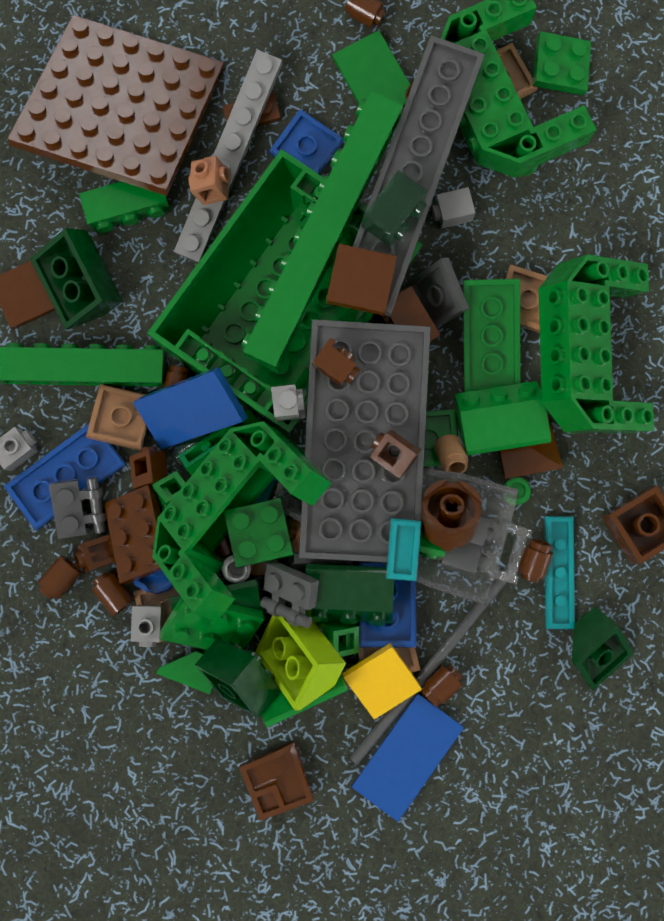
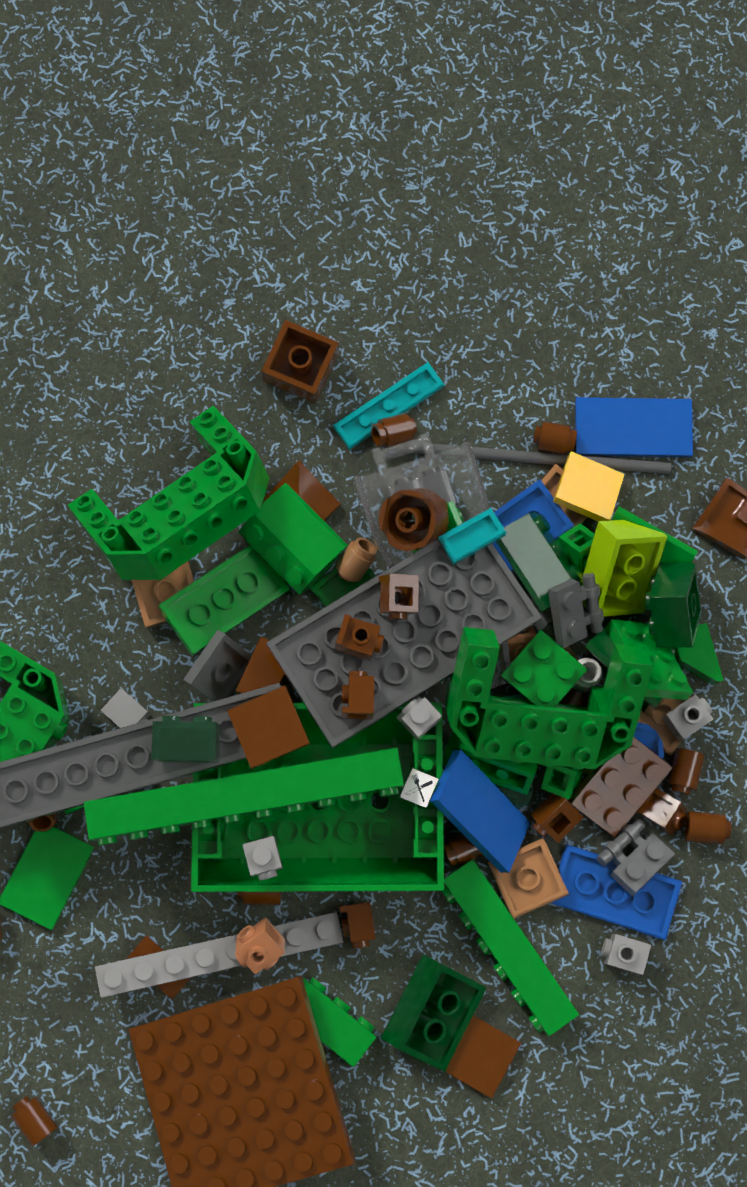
camera: 130 degrees left, 5 degrees down
(175, 268) = (358, 924): none -> reddish brown brick
(235, 367) = (419, 788): none -> white sticker
(266, 211) = (263, 858): none -> light grey brick
(308, 142) = (156, 892): blue tile -> none
(394, 393) = (348, 644): none -> reddish brown brick
(523, 488) = (342, 488): green tile -> none
(598, 647) = (430, 333): dark green slope -> none

